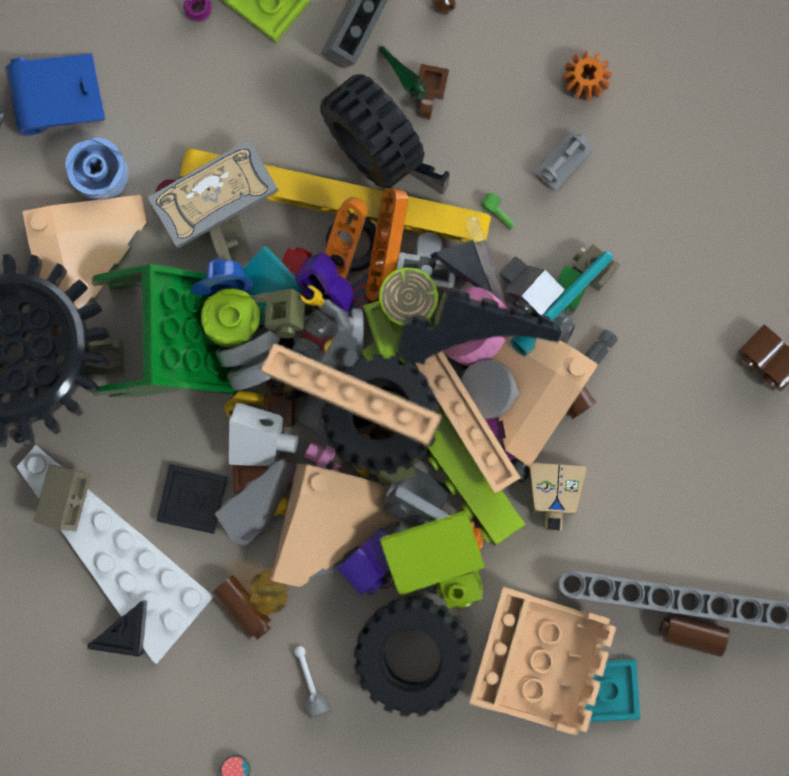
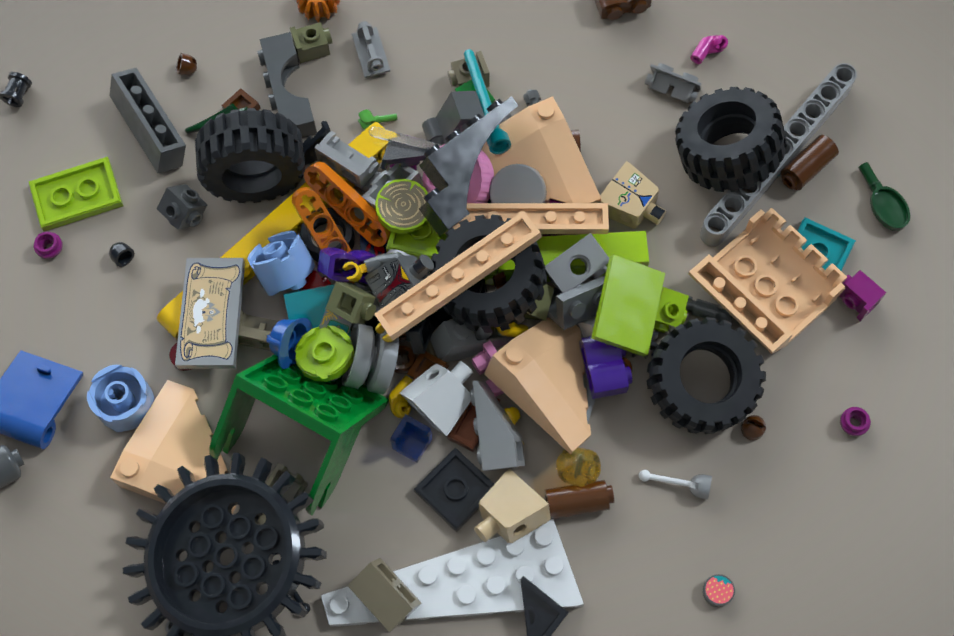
camera: 55 degrees left, 15 degrees down
(195, 557) = (511, 509): none -> tan torso
(210, 435) = (411, 438): none -> clear blue panel
(227, 75) = (121, 254): none -> black hinge
(294, 224) = (282, 263): none -> light blue brick
(299, 99) = (182, 206): none -> dark grey brick
(393, 723) = (753, 432): none -> reddish brown hinge
(429, 215) = (346, 160): none -> light grey hinge
(464, 483) = (586, 250): none -> light grey brick
(485, 614) = (706, 309): none -> dark grey axle
(500, 84) = (281, 61): none -> dark grey arch
(538, 110) = (311, 42): none -> olive brick
(585, 751) = (861, 294): none -> magenta brick
(677, 520) = (737, 163): none -> black tyre
(698, 728) = (885, 202): none -> dark green piece
(706, 450) = (683, 85): none -> light grey hinge
(769, 472) = (709, 45): none -> dark pink arm

